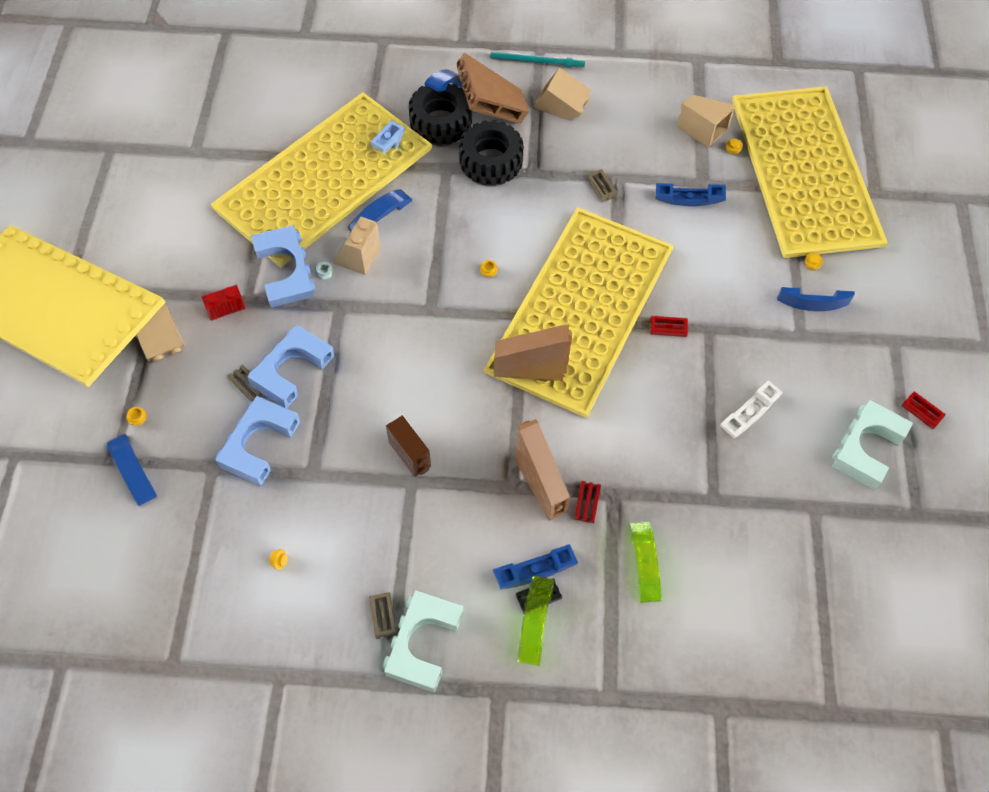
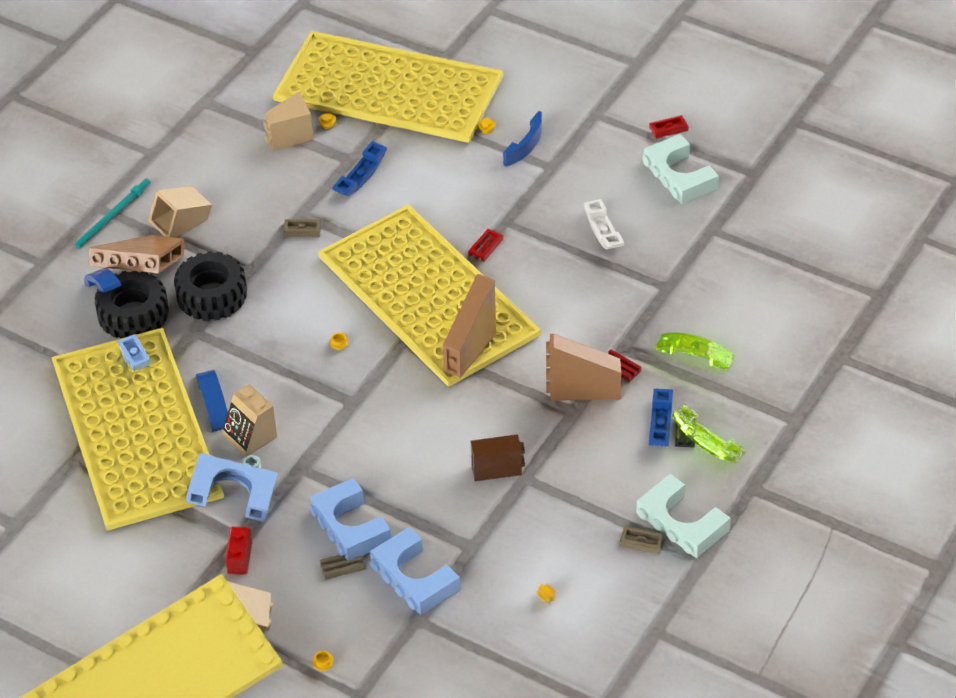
camera: 60 degrees left, 15 degrees down
(131, 470) = (376, 678): blue slope -> none

